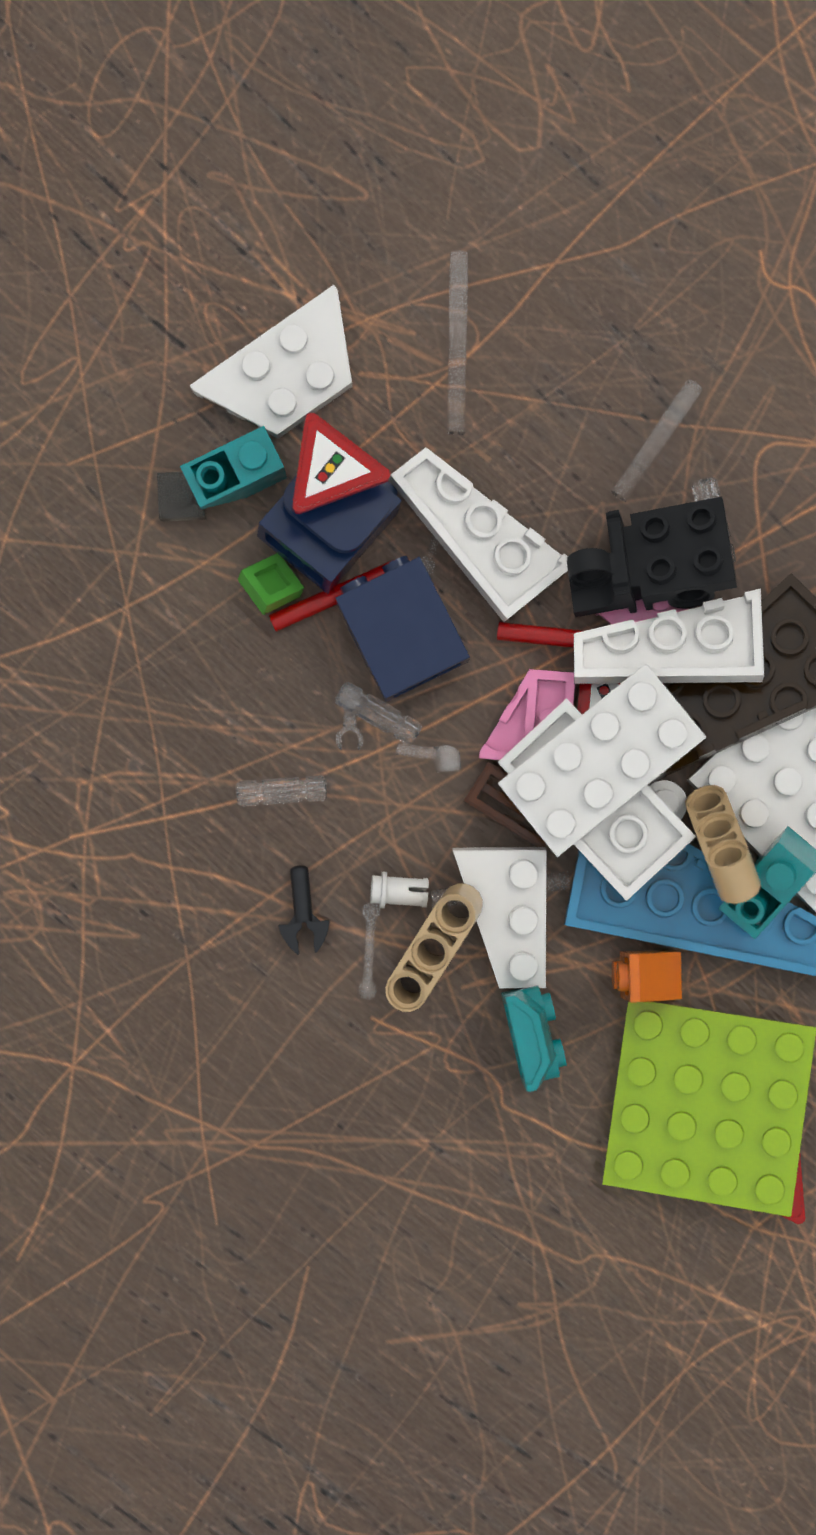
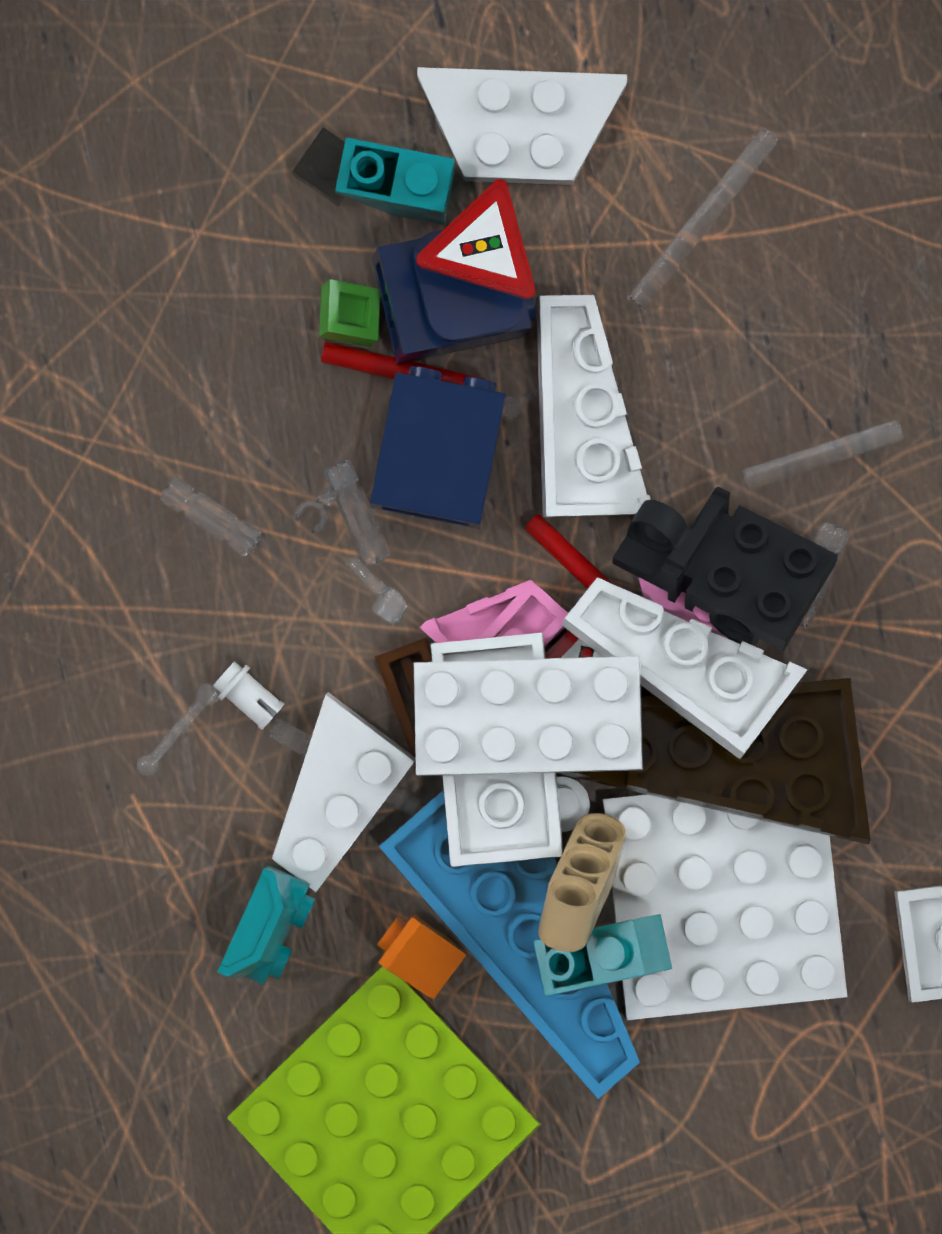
camera: 40 degrees right, 0 degrees up
(303, 912) = (142, 647): black bar -> none
(422, 965) = (214, 777): tan beam -> none

